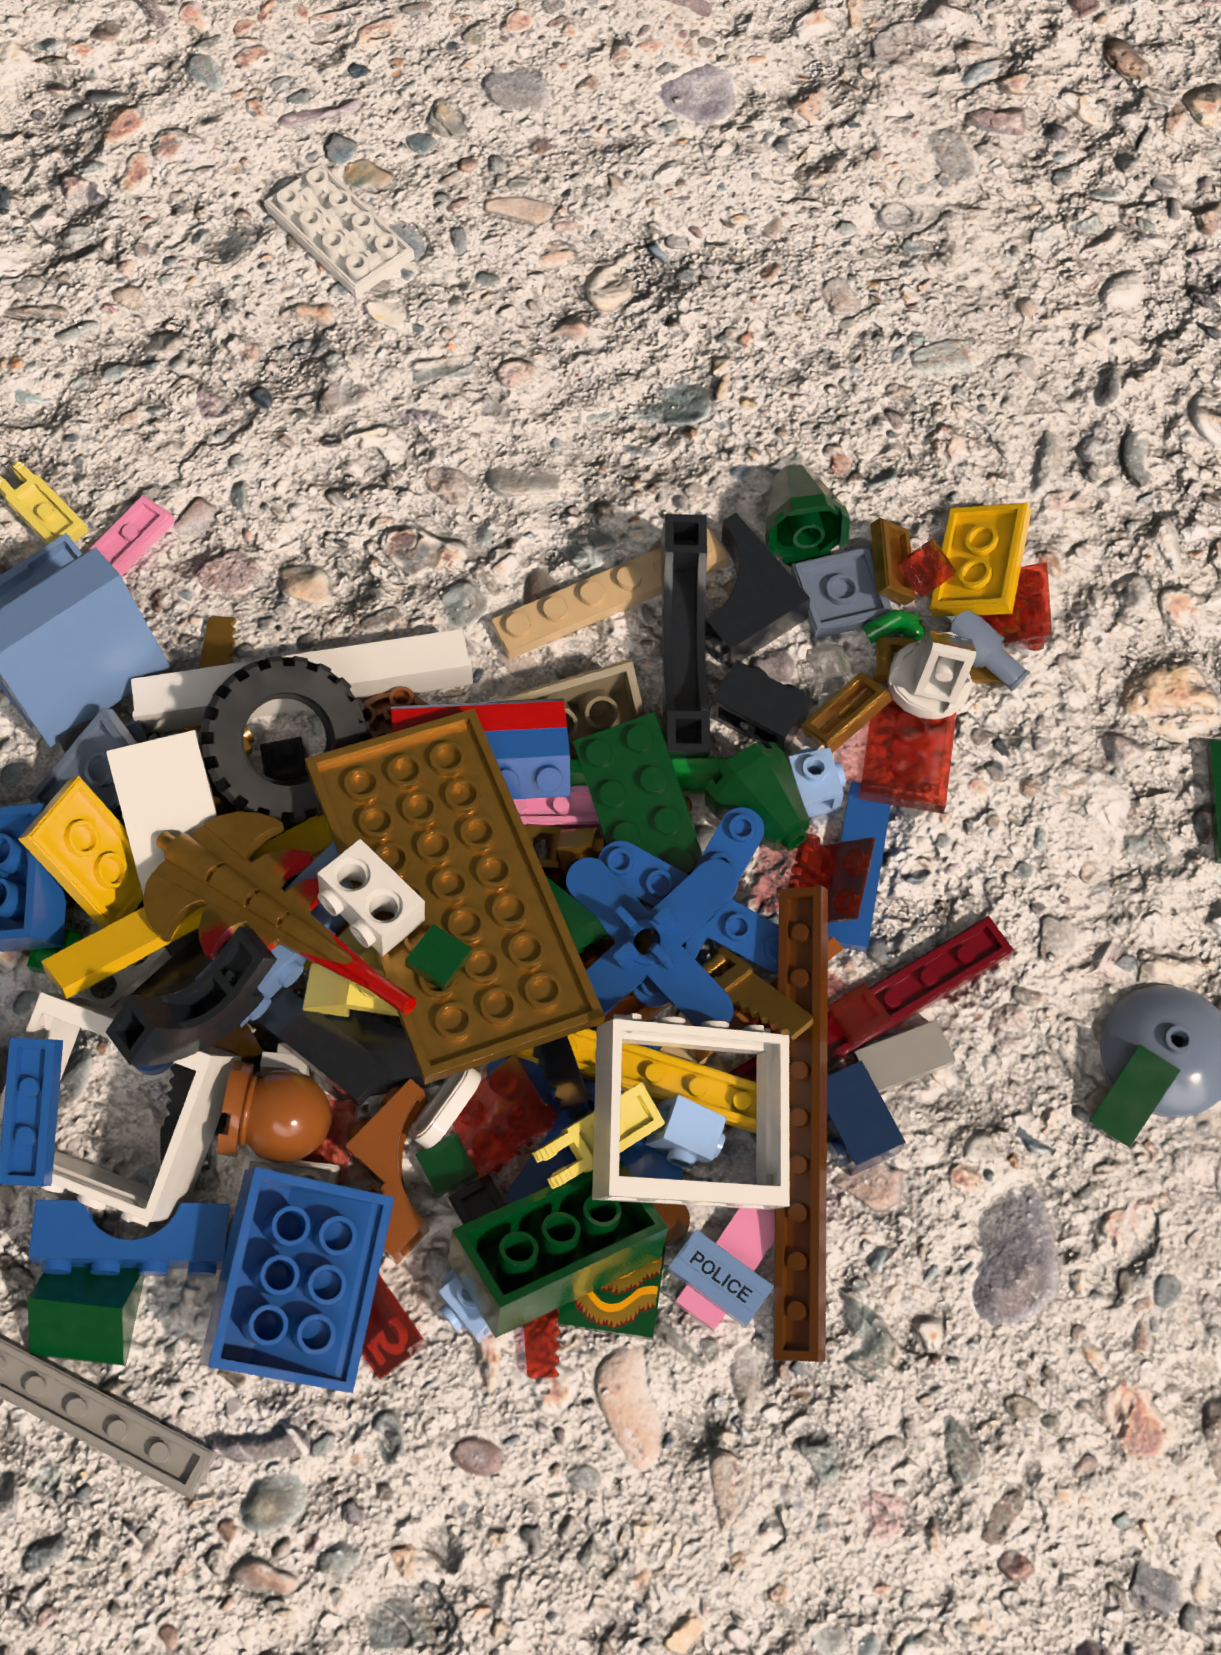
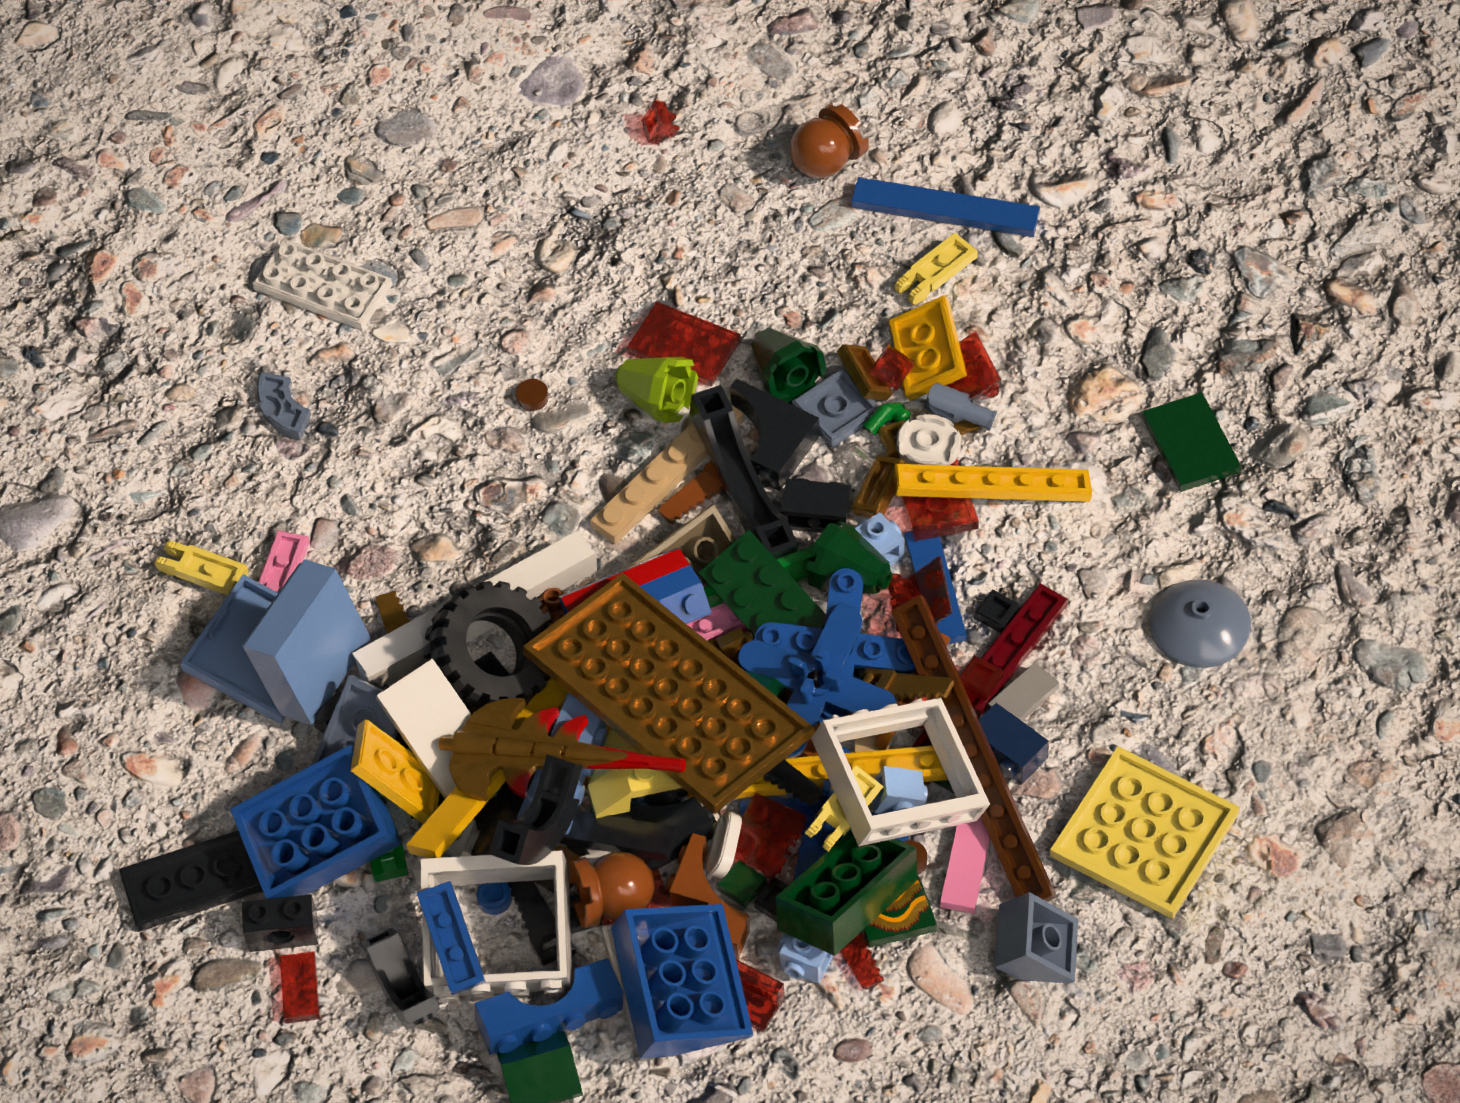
camera: 20 degrees left, 10 degrees down
(222, 348) = (279, 407): none -> sand blue tile
(379, 892) = (622, 709): white brick -> none
(438, 957) = (685, 730): dark green tile -> none
(501, 442) = (532, 394): none -> reddish brown tile
(623, 634) = (692, 494): none -> dark orange piece
(644, 487) = (658, 385): none -> lime cone
(700, 447) = (680, 334): none -> clear red tile
(720, 1278) = (964, 873): medium blue tile -> none
(771, 1415) = (1036, 940): none -> sand blue slope
(792, 179) = (658, 123): none -> clear red tile
(920, 930) = (996, 611): none -> black tile
(944, 666) = (936, 426): white slope -> none
(970, 267) = (827, 142): none -> dark orange tile
(978, 1319) = (1144, 832): none -> light yellow plate
(985, 762) = (992, 482): none -> yellow tile
(1034, 465) = (936, 268): none -> light yellow hinge
(1079, 396) = (945, 207): none -> blue tile
(1134, 1095) = (1188, 656): dark green tile -> none

